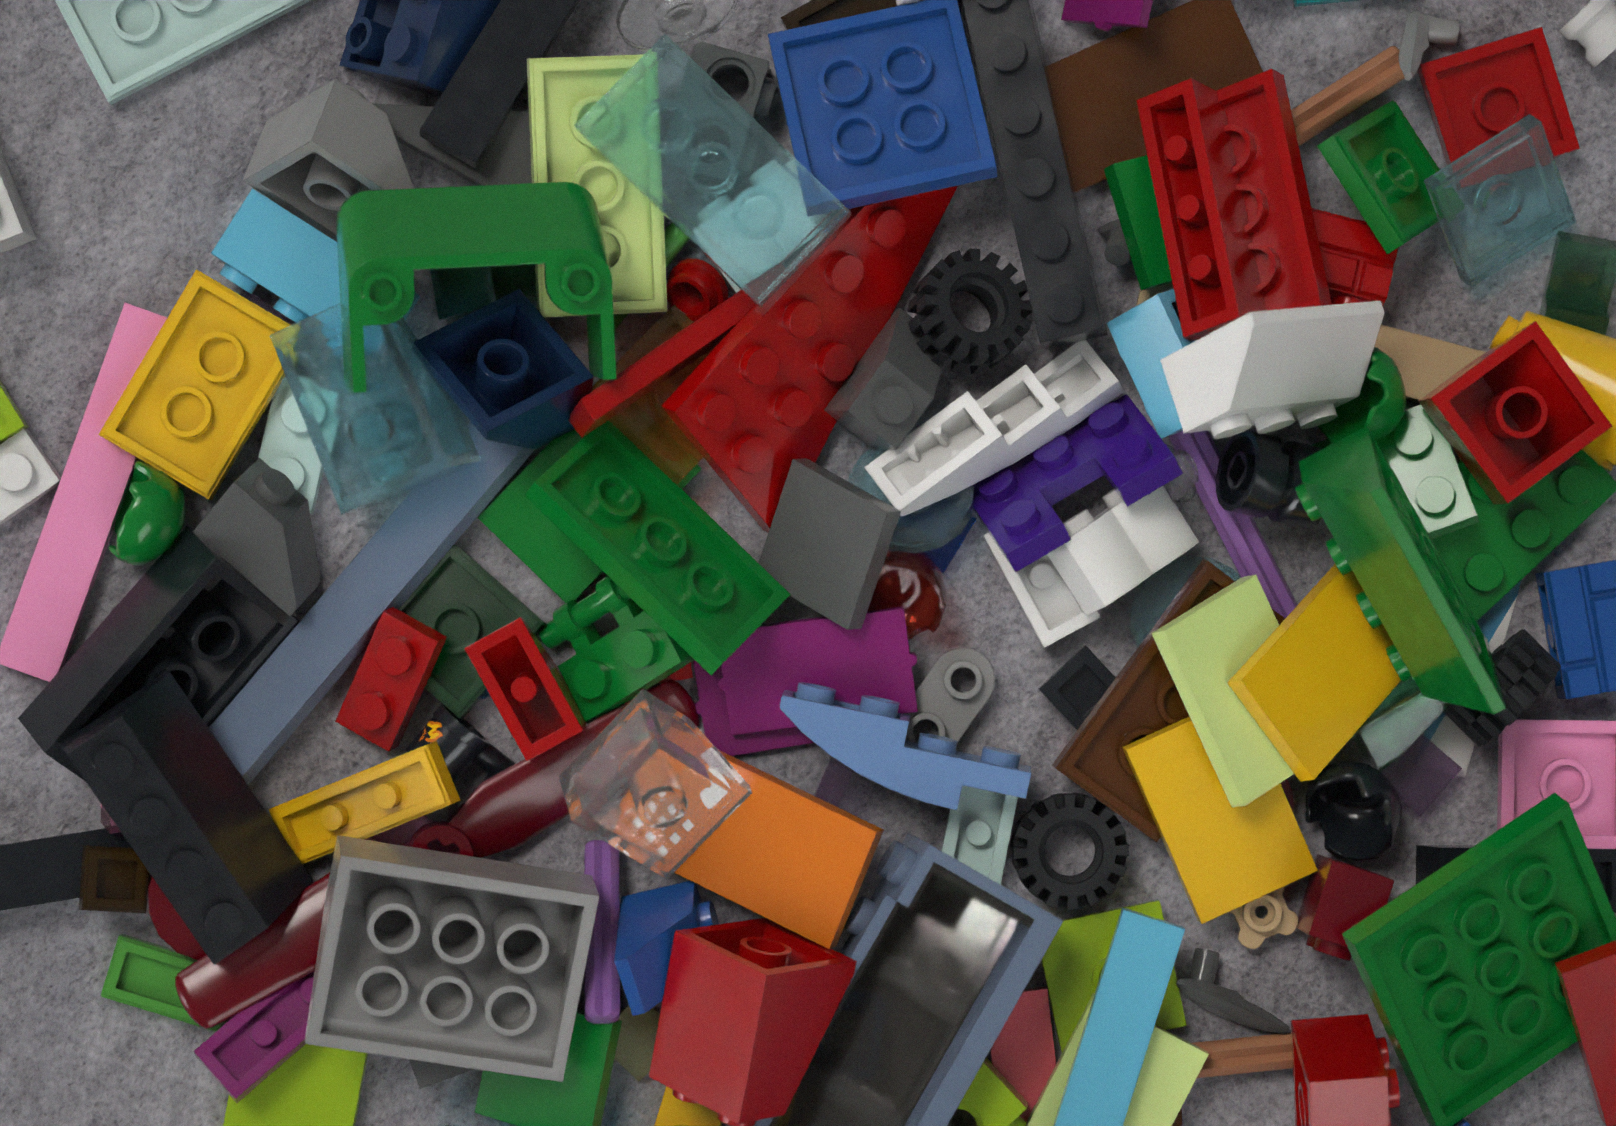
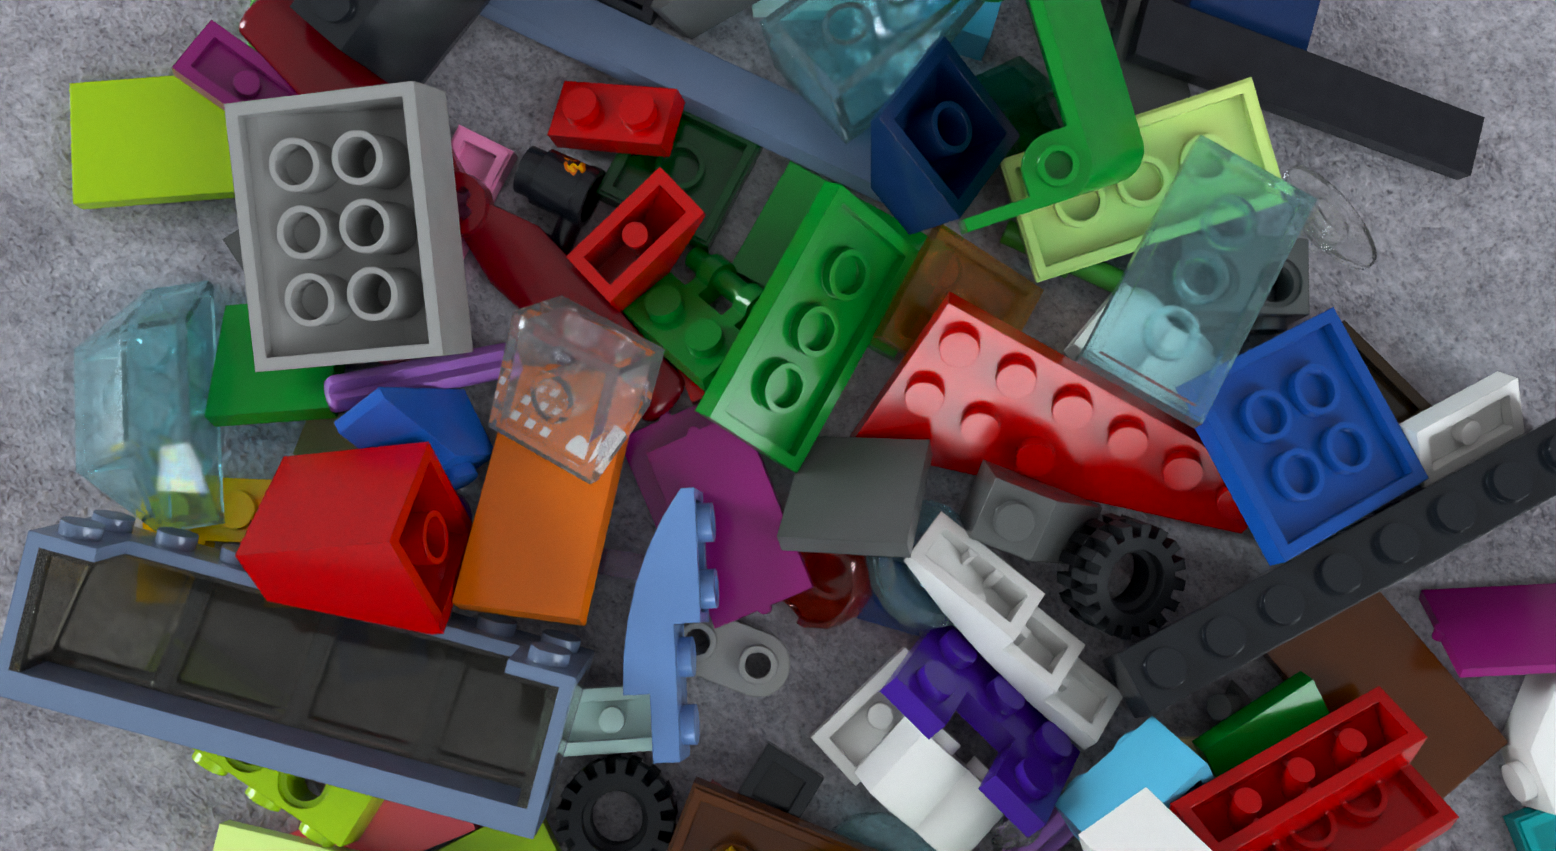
camera: 75 degrees right, 5 degrees down
(366, 802) = (494, 126): yellow tile -> none
(659, 364) = (984, 278): red tile -> none
(695, 288) = (1064, 308): red plate -> none

